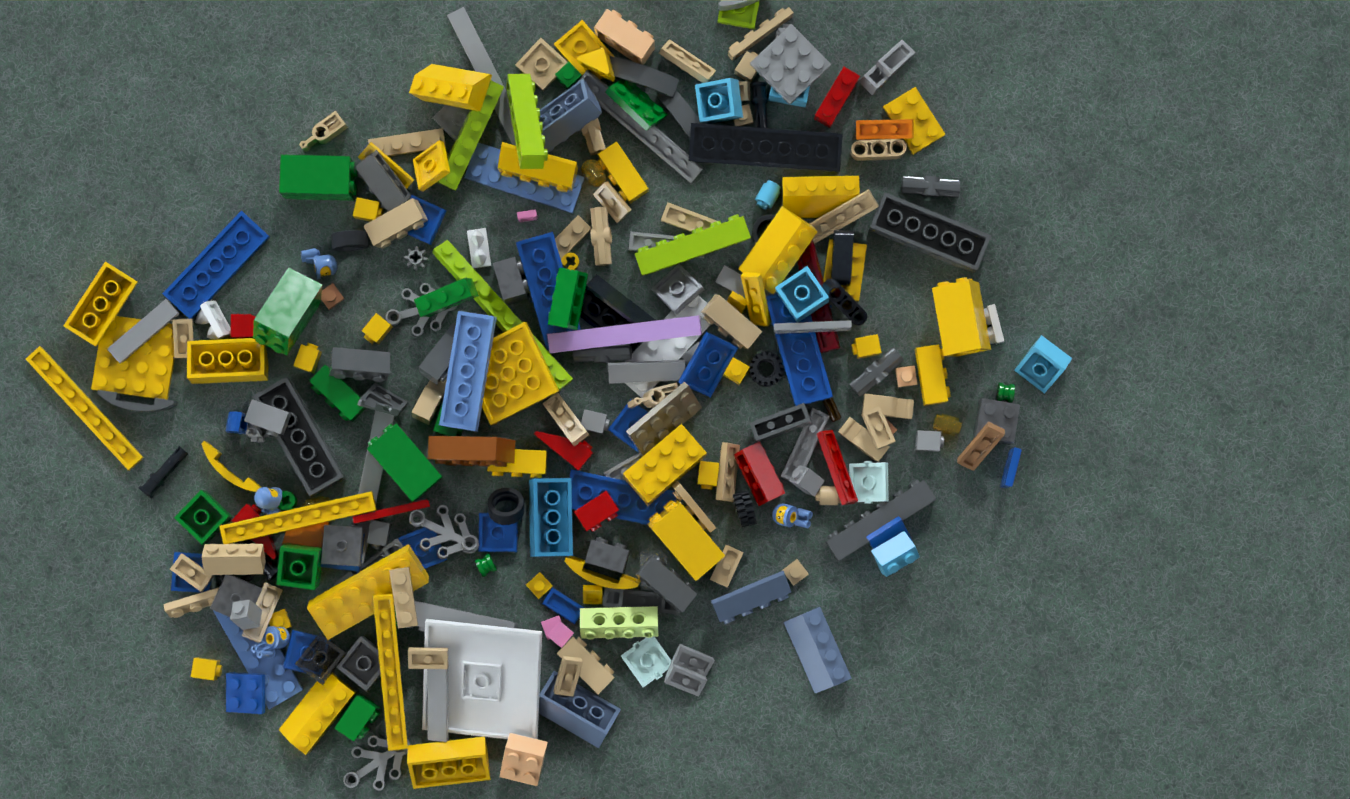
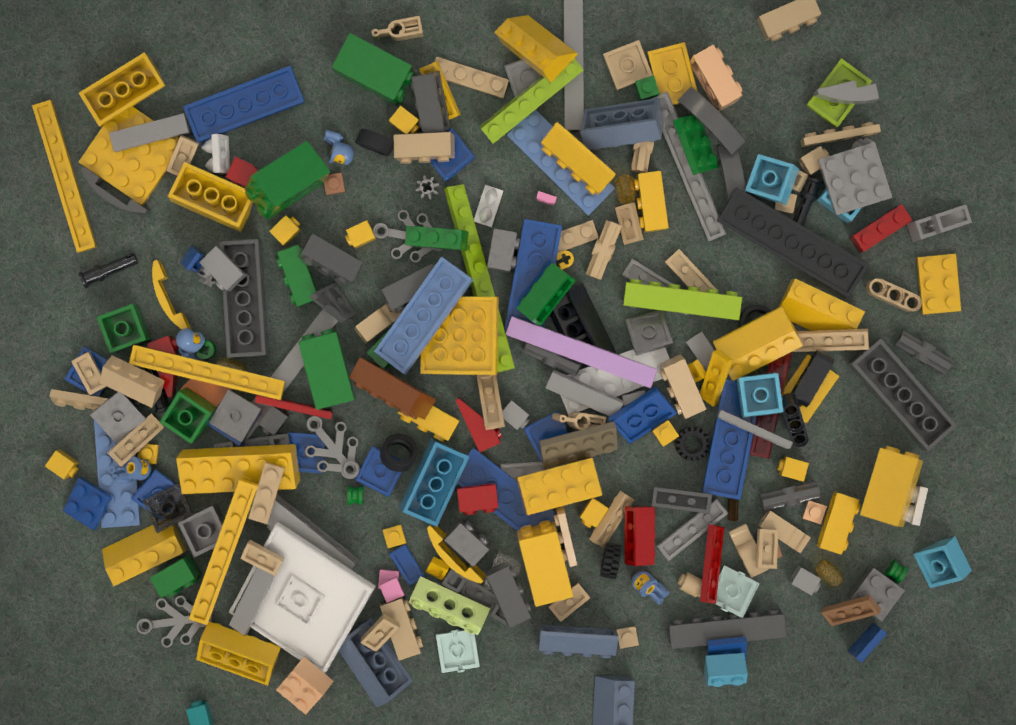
camera: 25 degrees right, 5 degrees up
(246, 614) = (118, 437): light grey brick -> none
(431, 165) = (481, 110): yellow tile -> none
(526, 122) = (587, 113): lime brick -> none
(598, 62) = (680, 90): yellow slope -> none
(687, 61) = (760, 128): tan plate -> none
(689, 670) = (490, 677): light grey slope -> none
(767, 195) = (772, 286): medium azure brick -> none
(806, 480) = (679, 562): light grey brick -> none
(885, 129) = (909, 279): orange plate -> none

